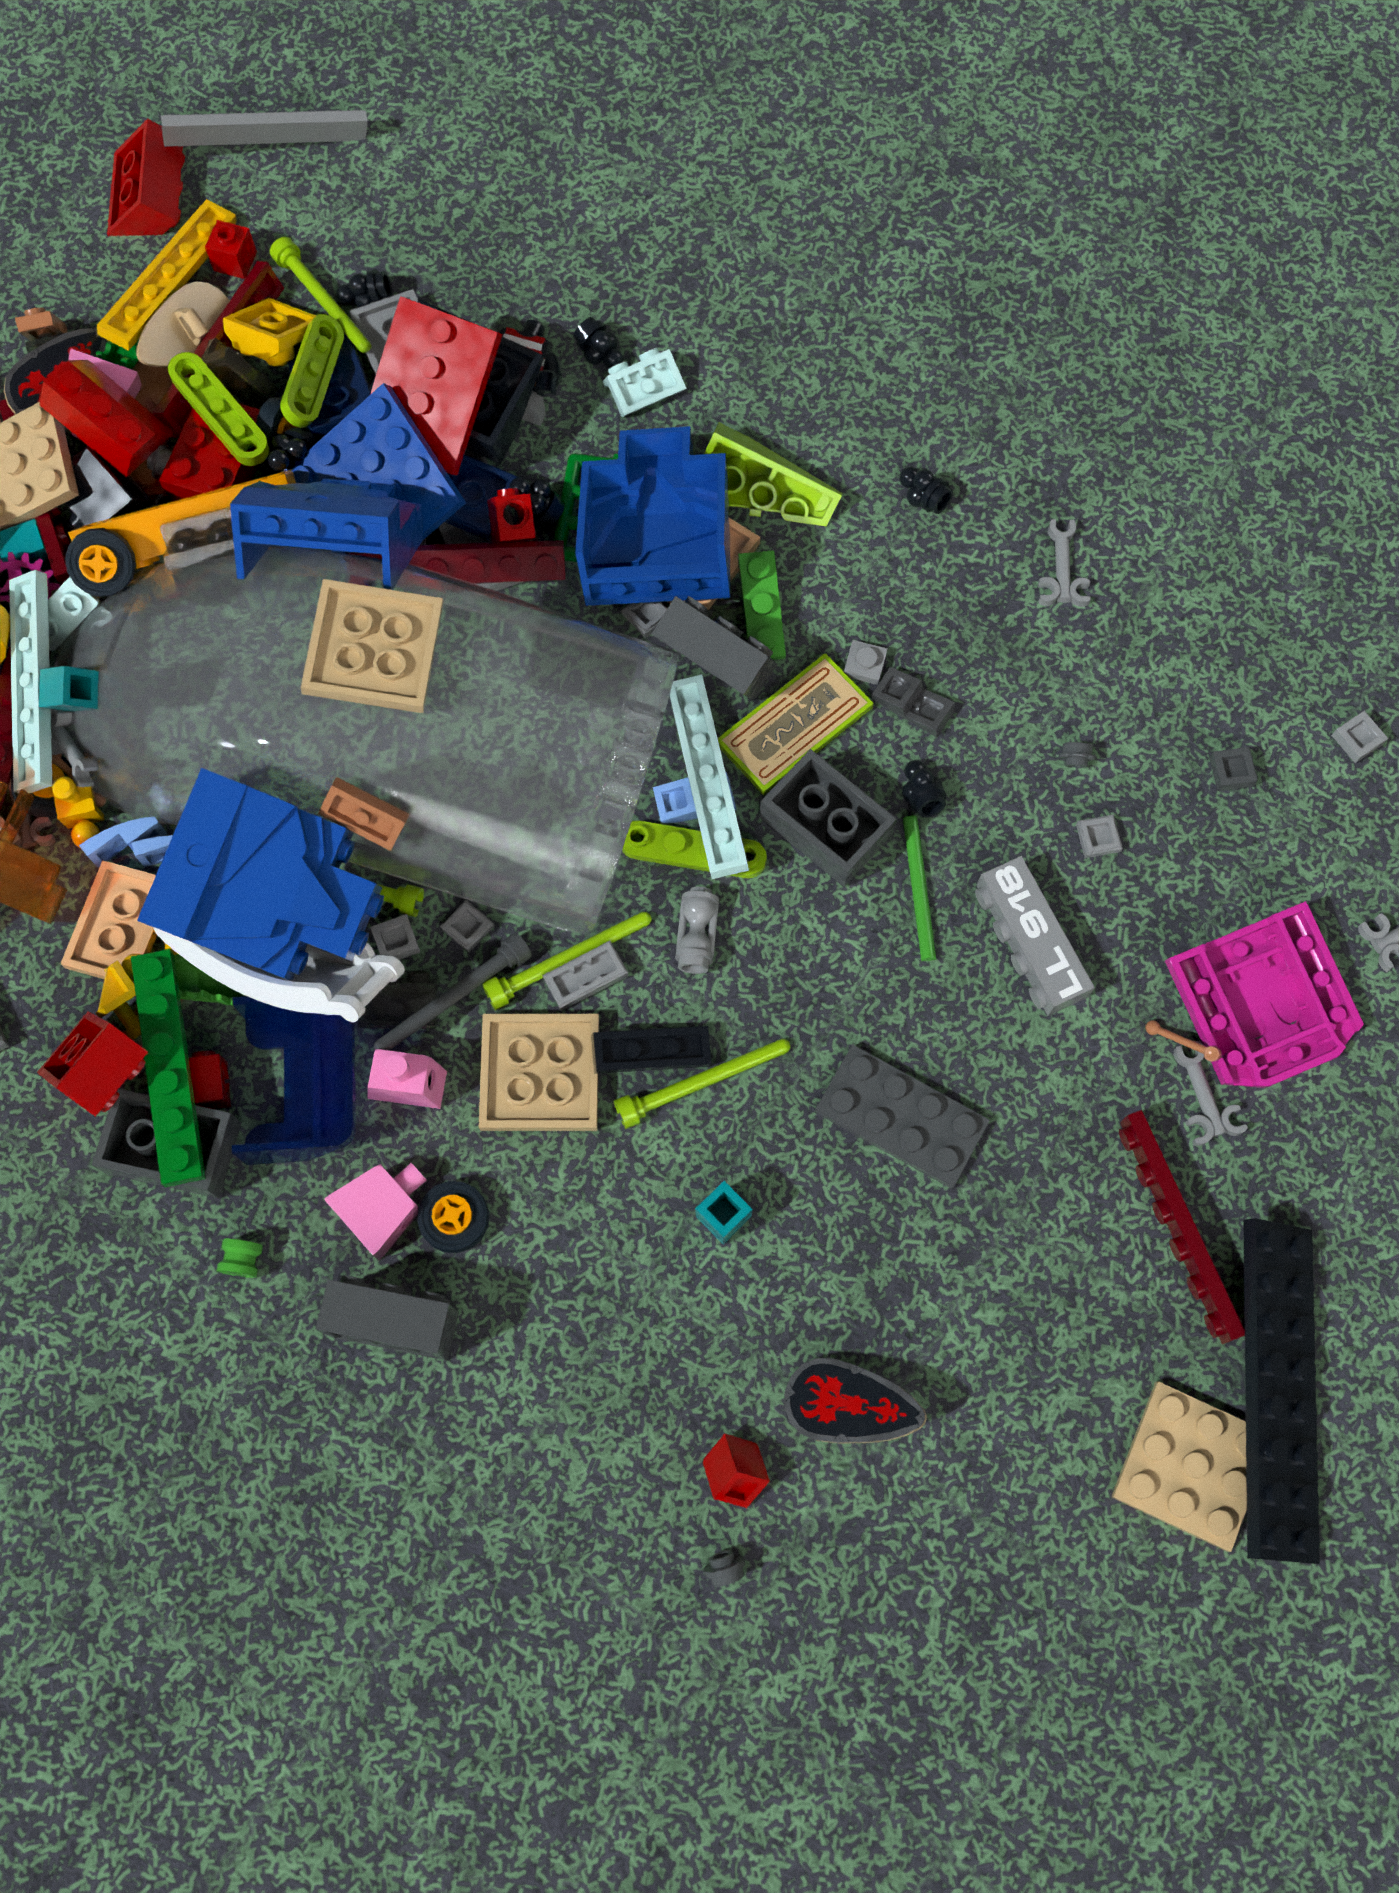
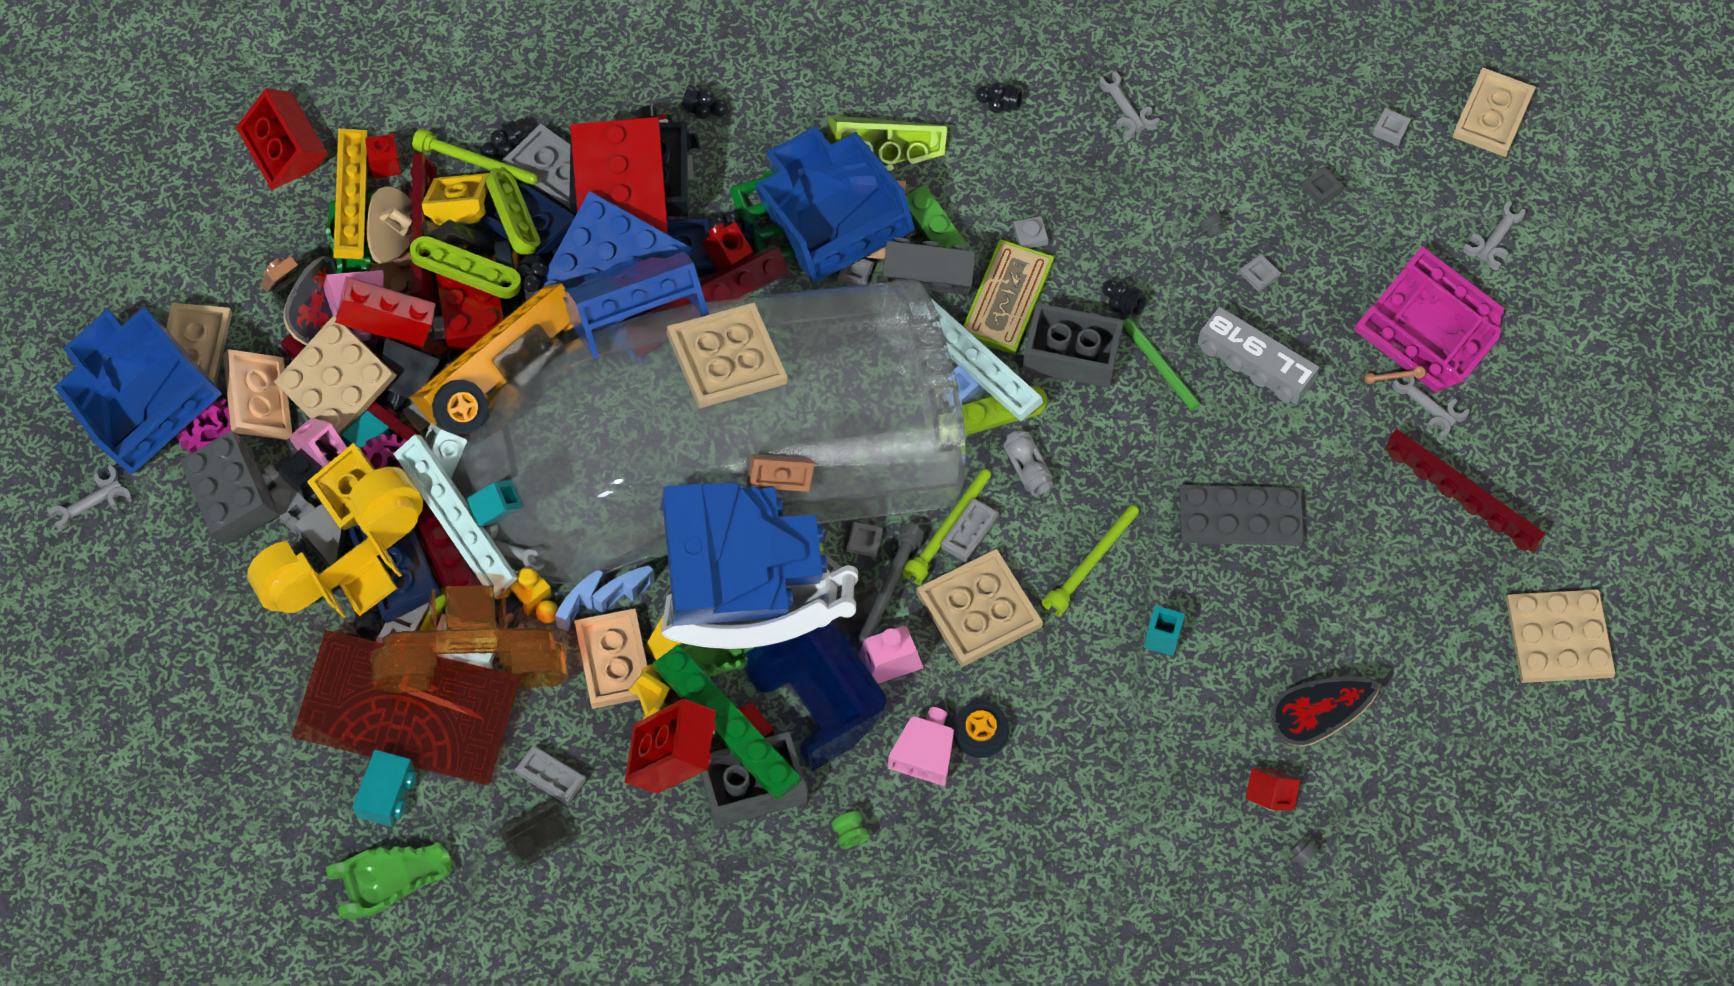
camera: 30 degrees left, 10 degrees down
(263, 127) = (354, 57): light grey tile -> none
(388, 1317) = (984, 809): dark grey brick -> none
(644, 382) = (754, 113): light aqua bracket -> none
(651, 1049) = (1047, 553): black plate -> none
(909, 700) = (1072, 243): flat silver slope -> none
(1280, 1393) = (1588, 559): black plate -> none

